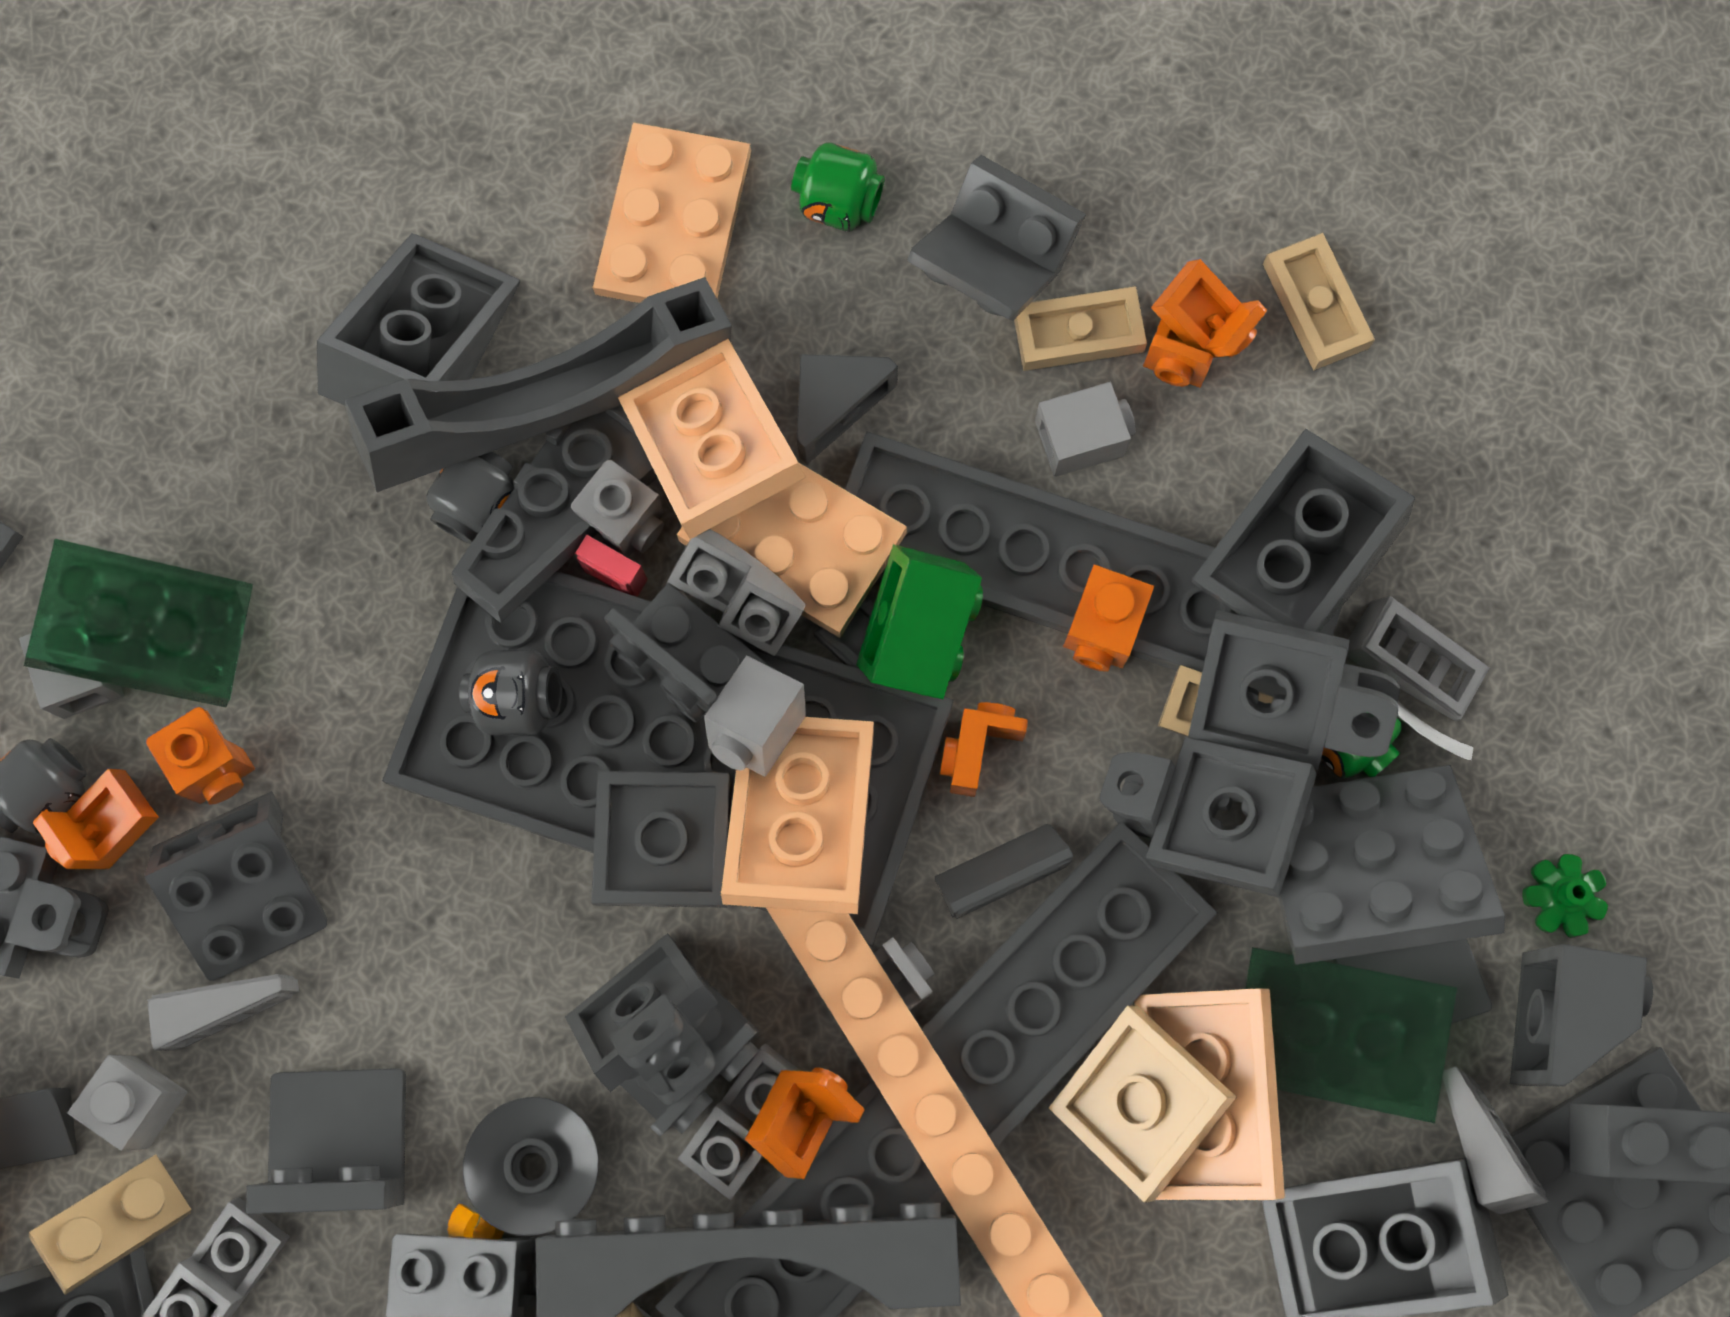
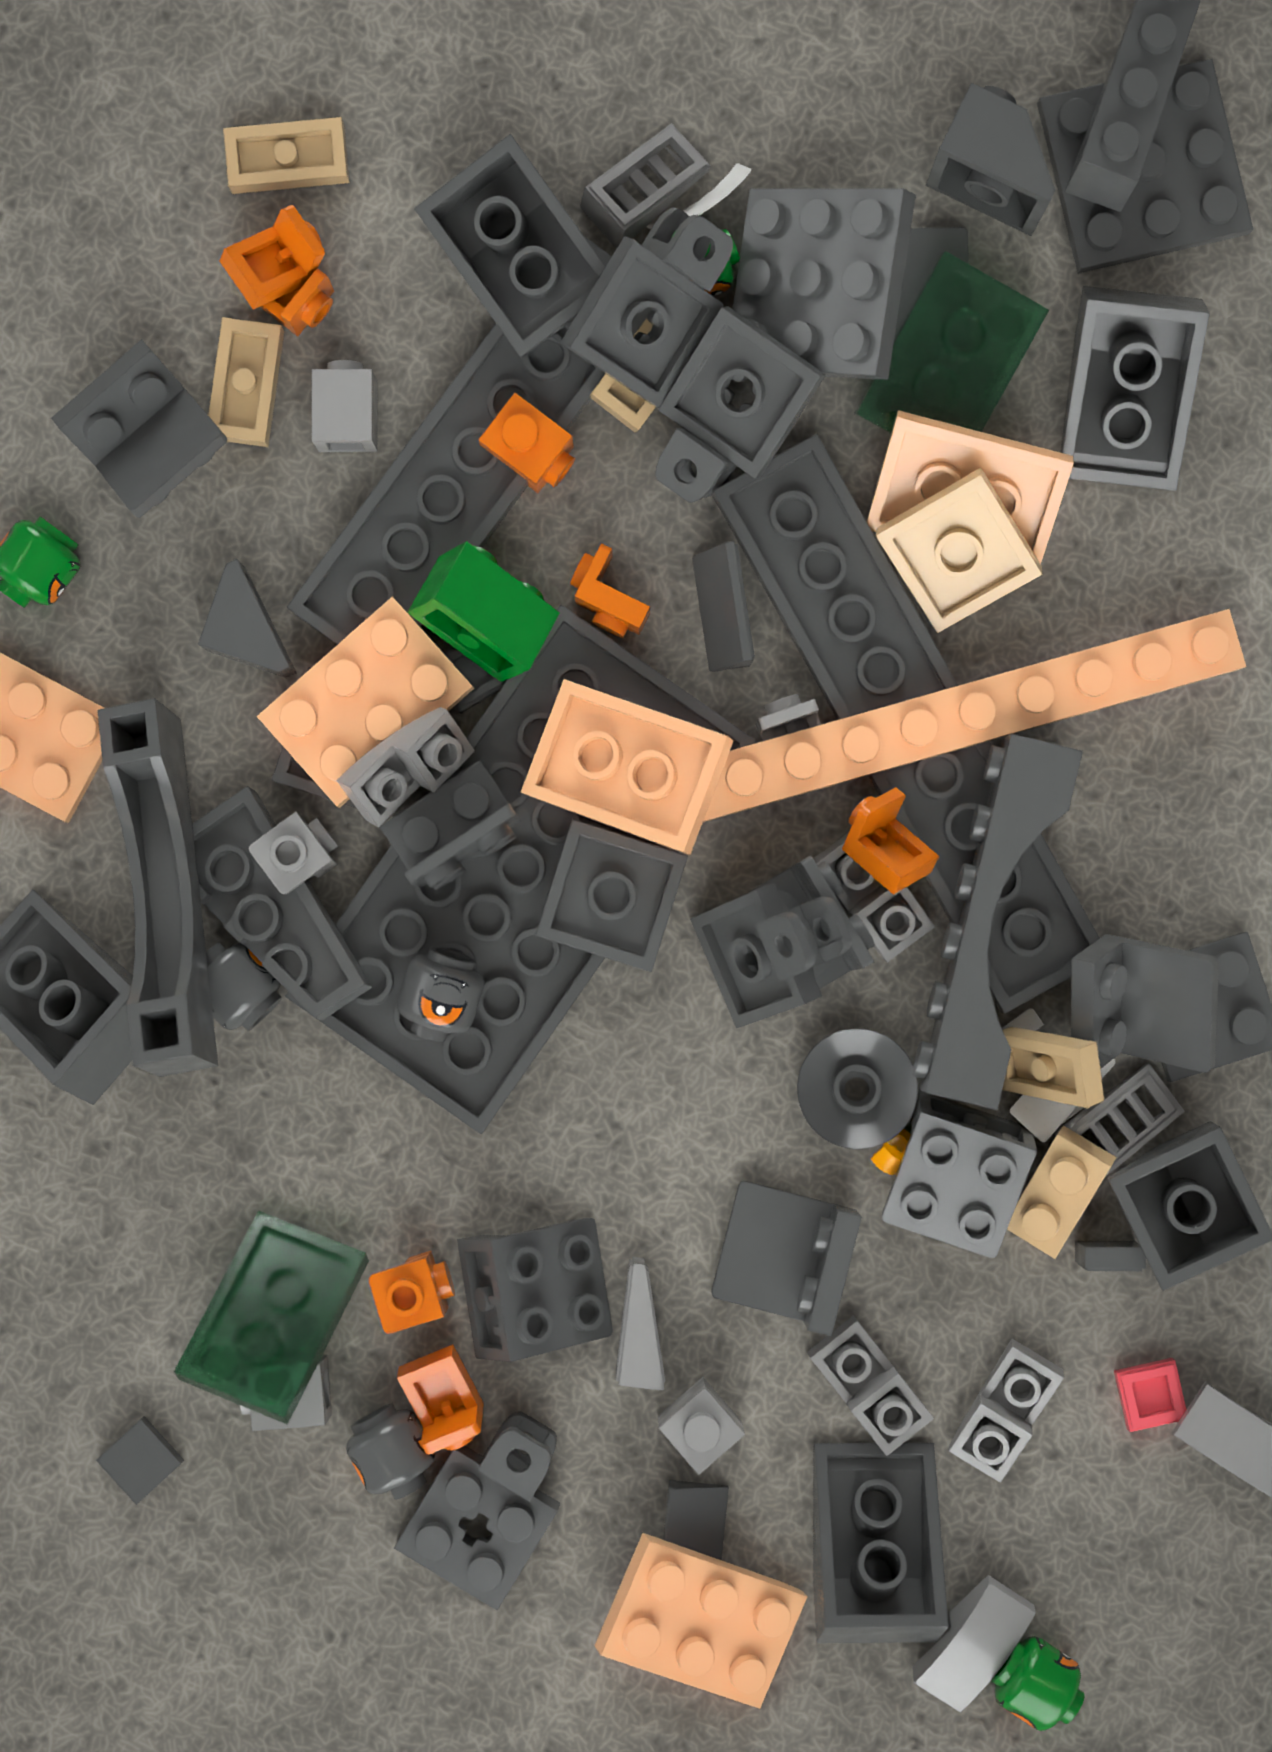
camera: 75 degrees left, 10 degrees up
(109, 1224) = (800, 1463): tan plate -> none
(610, 567) = (344, 877): coral tile -> none
(710, 438) = (258, 747): light nougat plate -> none
(754, 717) = (533, 780): light grey brick -> none
(1494, 1161) = (1094, 271): light grey slope -> none
(1565, 895) = (889, 130): green plant -> none

